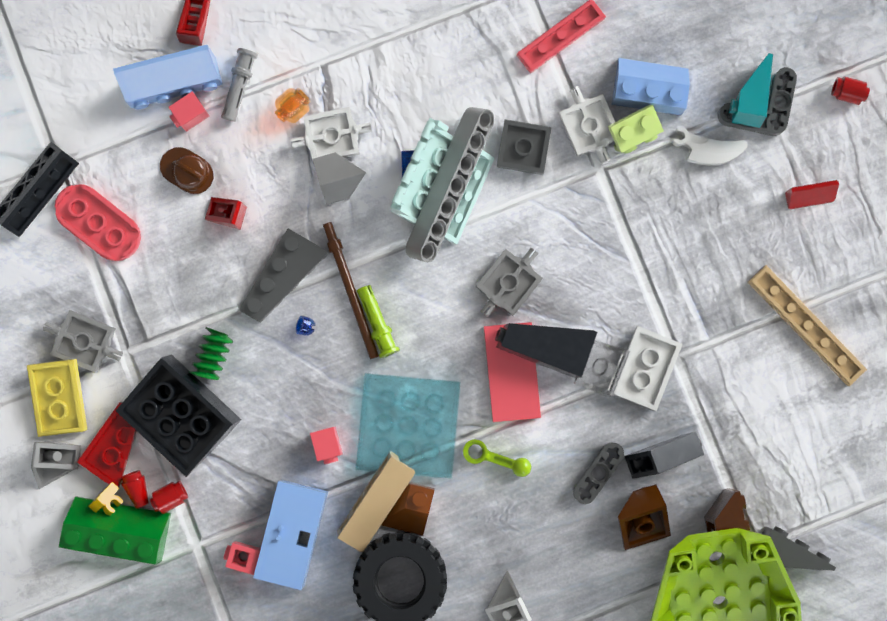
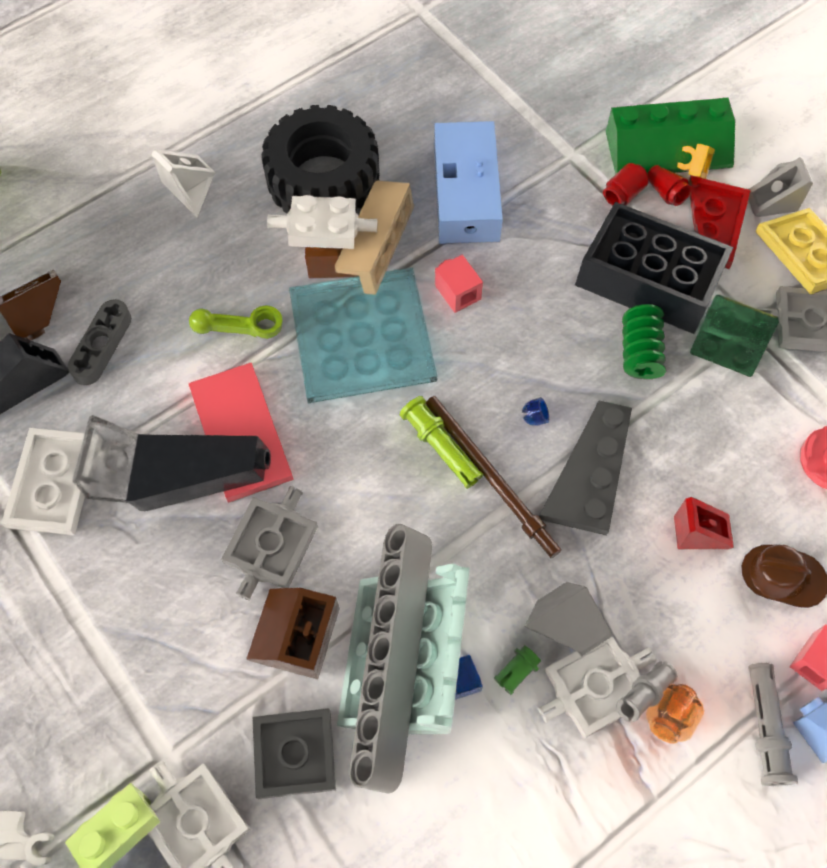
camera: 165 degrees right, 20 degrees down
(146, 340) = (734, 335): none -> clear green bracket
(234, 561) = (515, 146): coral brick -> none
(305, 118) = (646, 691): none -> light grey pin
(374, 159) = (517, 669): none -> bright green pin
(414, 510) = (322, 222): none -> white plate
(507, 217) = (294, 630): none -> reddish brown slope

